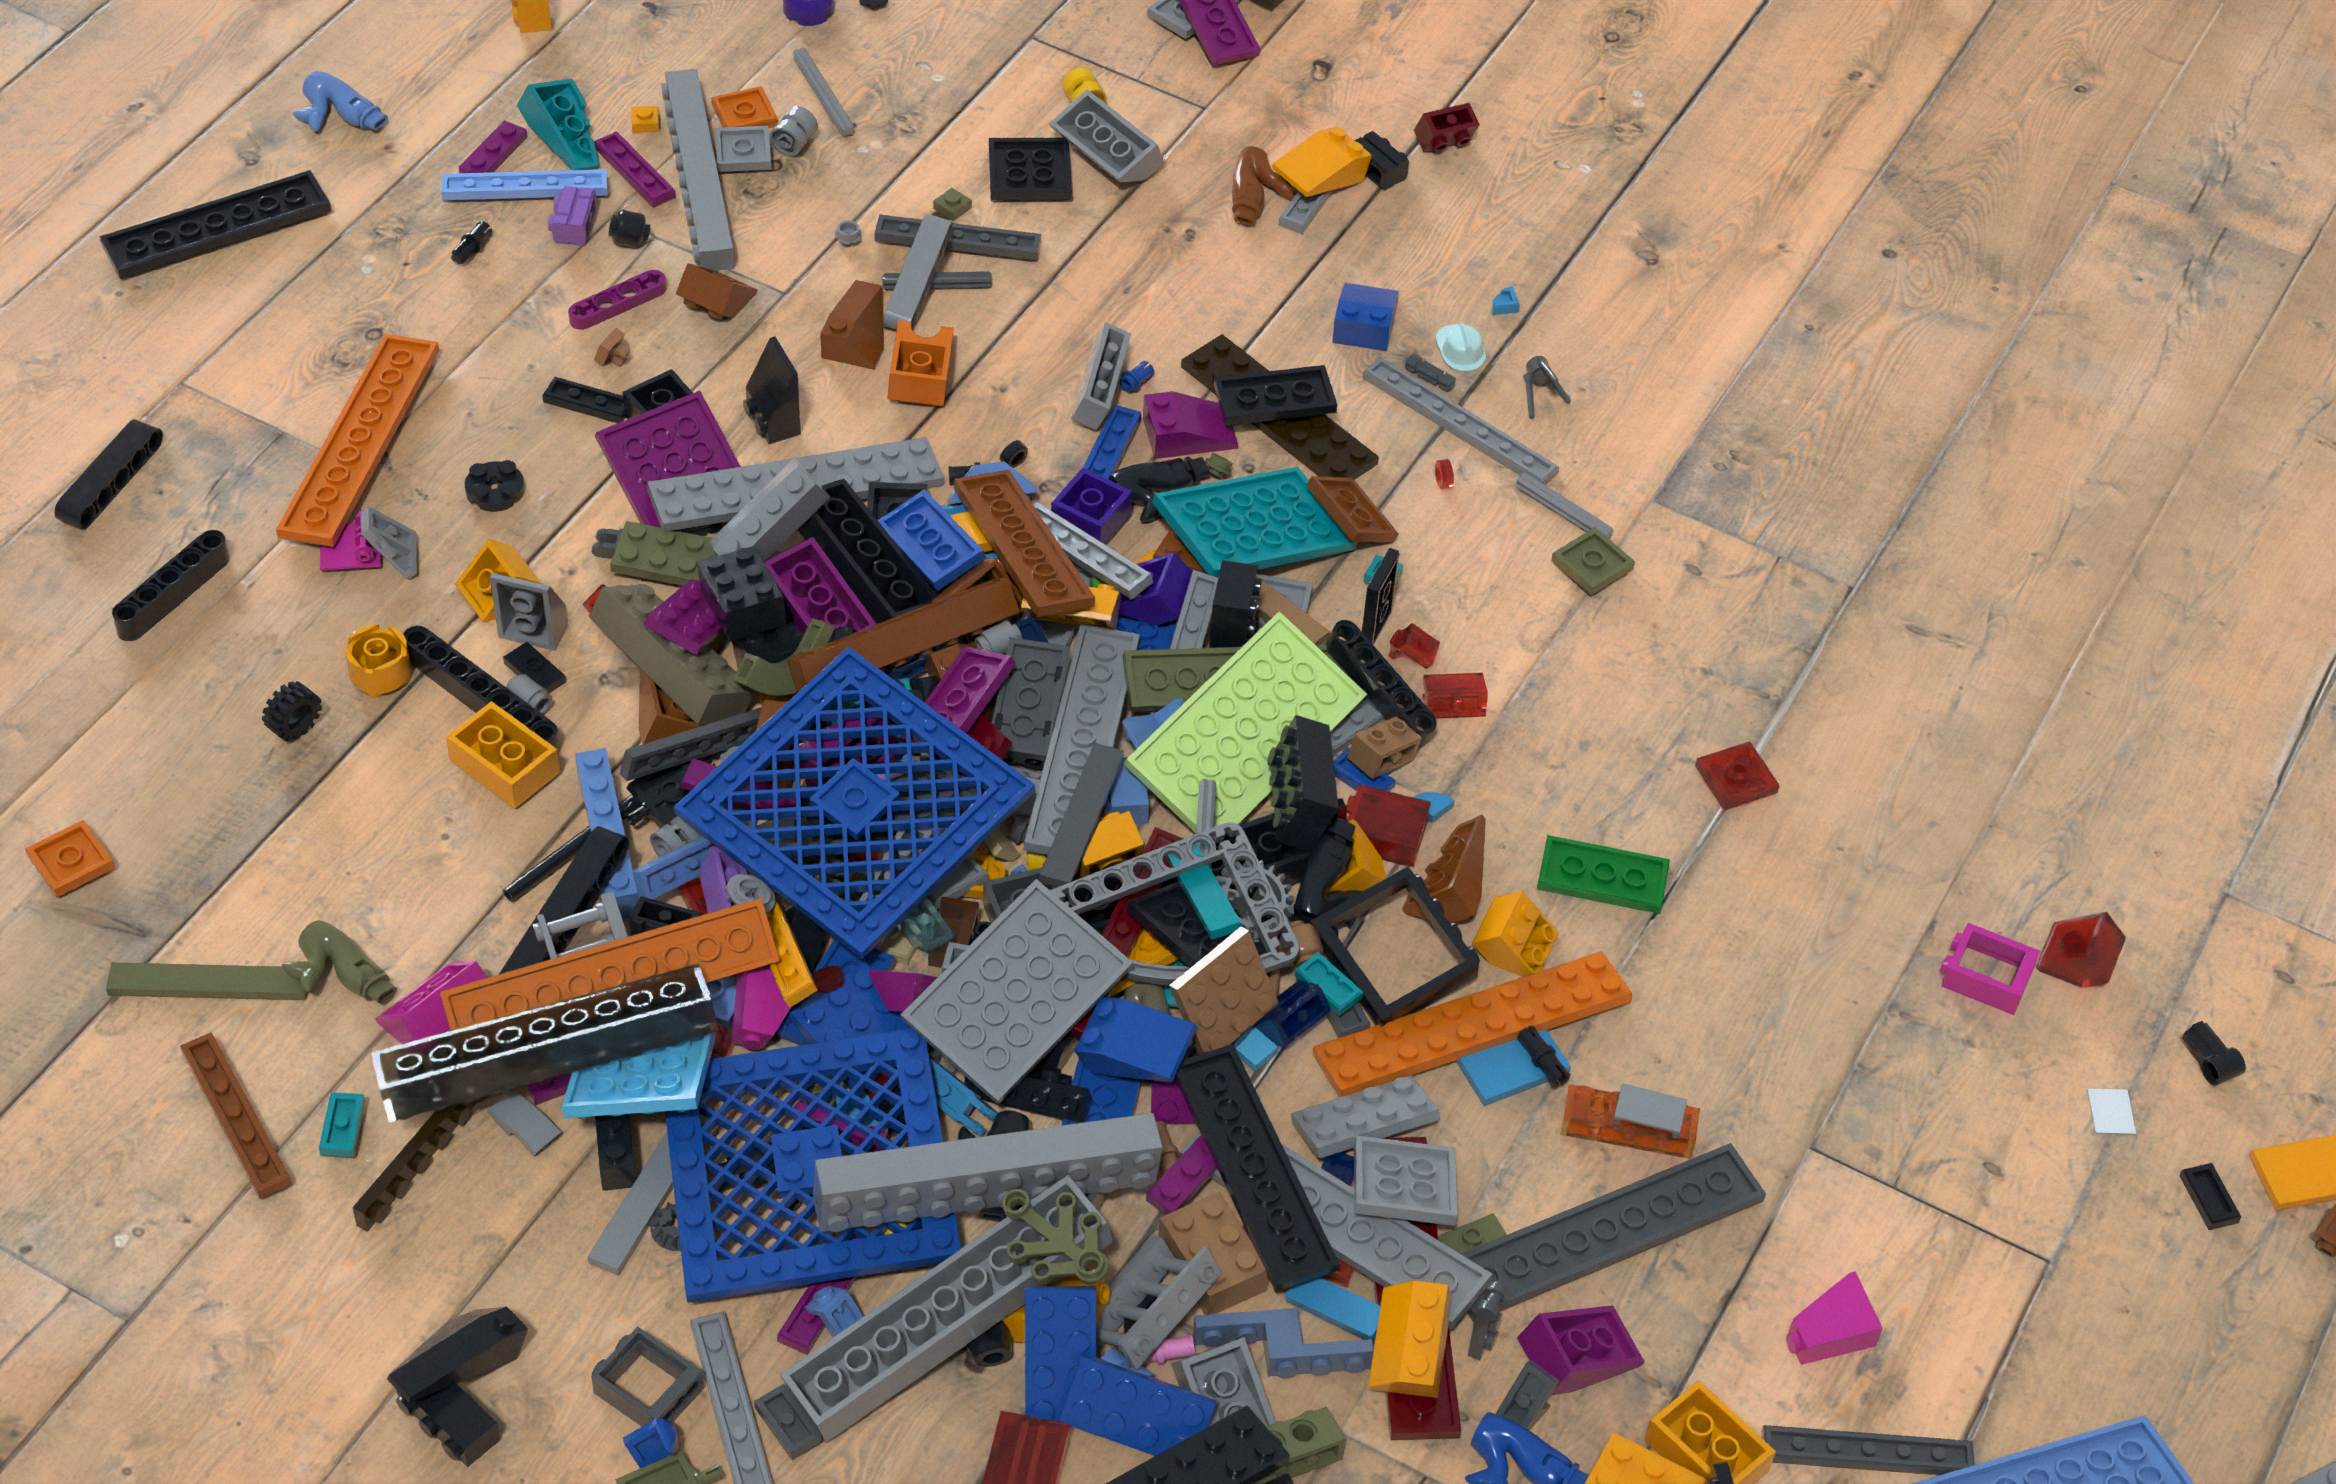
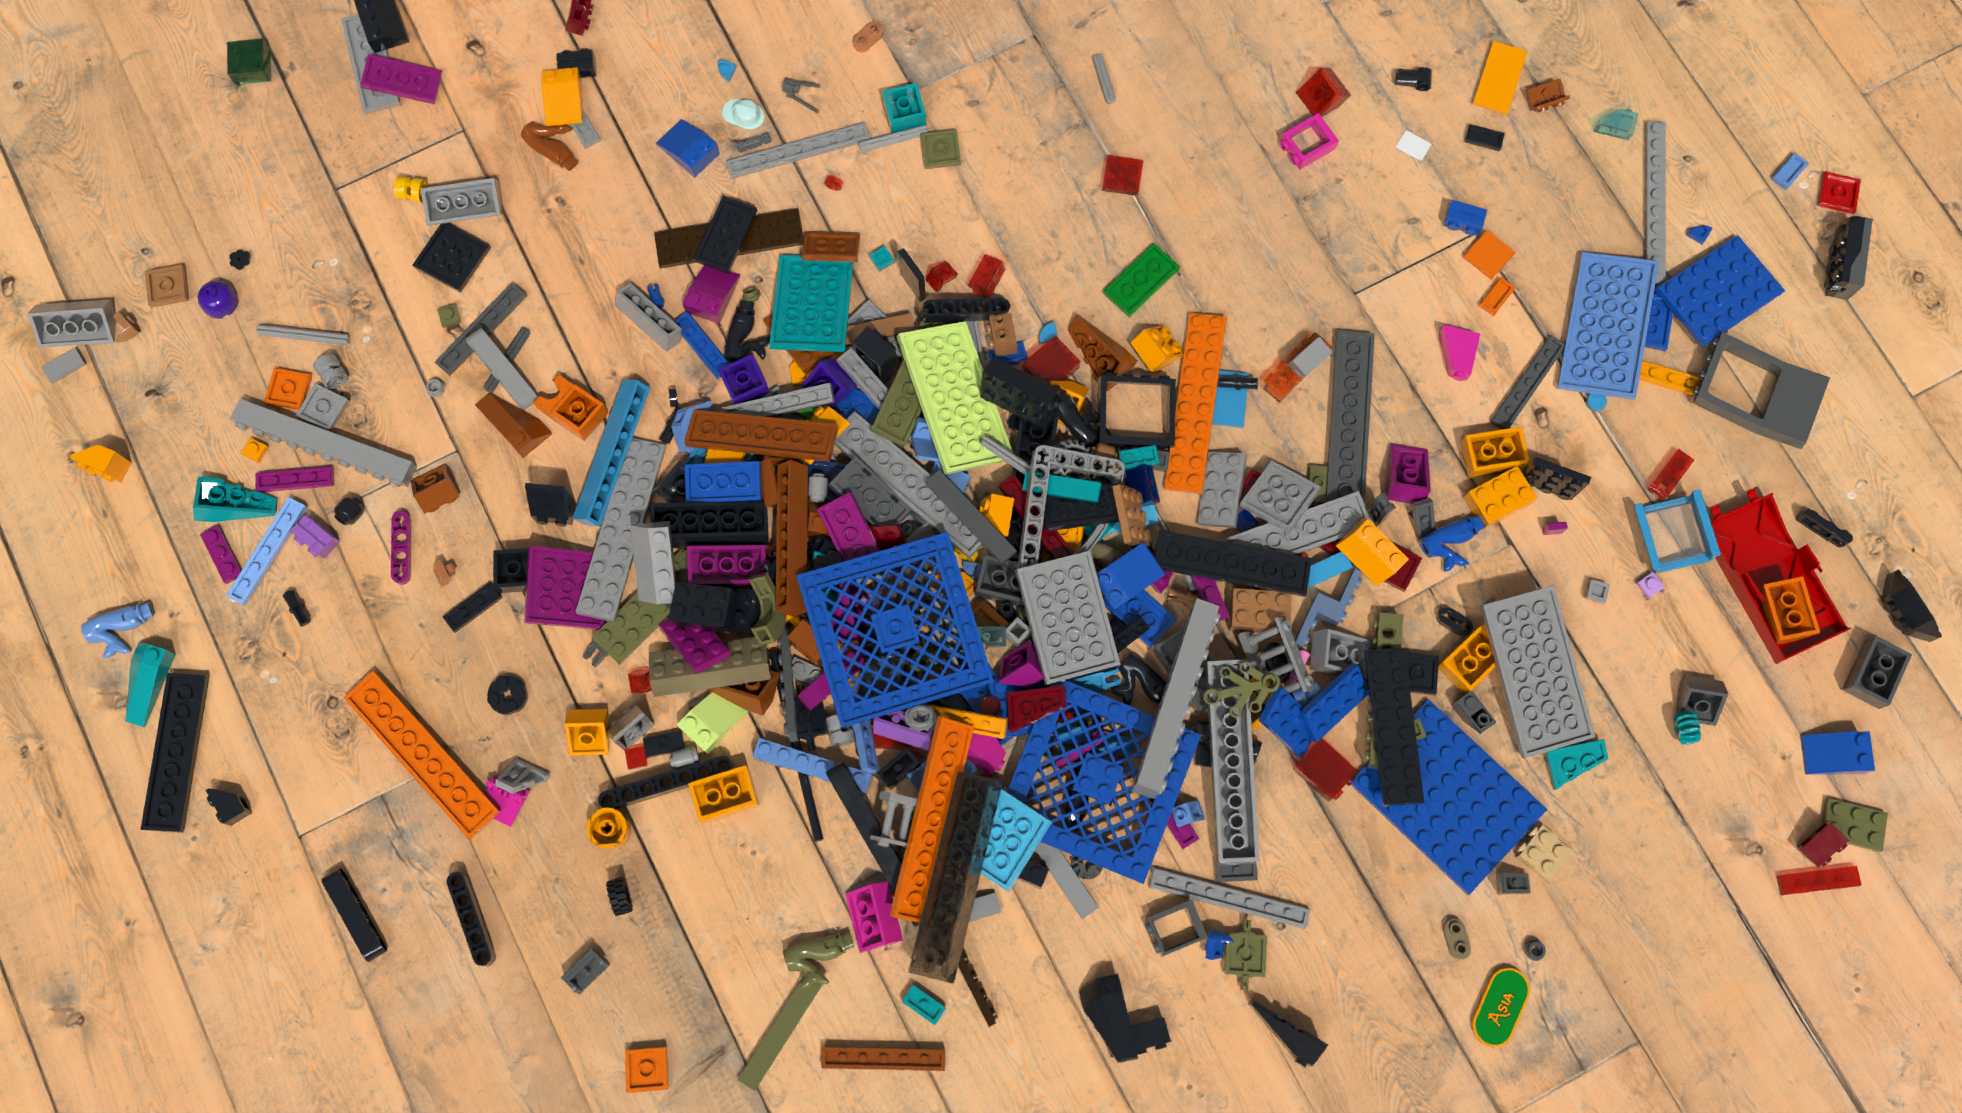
camera: 55 degrees left, 25 degrees up
(169, 730) = (585, 971): none -> dark grey hinge
(177, 299) = (229, 806): none -> black slope
(309, 152) = (146, 678): none -> teal wedge
(494, 649) = (636, 758): none -> clear red tile
(595, 698) = (711, 721): none -> yellowish green slope
(860, 1018) = (1034, 704): none -> dark red wing
(890, 426) = (611, 453): none -> dark azure brick
(1613, 490) = (904, 107): none -> teal brick
(1682, 416) = (871, 37): none -> nougat plate
(1860, 689) = (1104, 78): none -> light grey axle
(1971, 1338) = (1497, 296): none -> orange tile
(2028, 1293) = (1489, 254): none -> orange tile
(2054, 1226) = (1464, 217): none -> blue brick

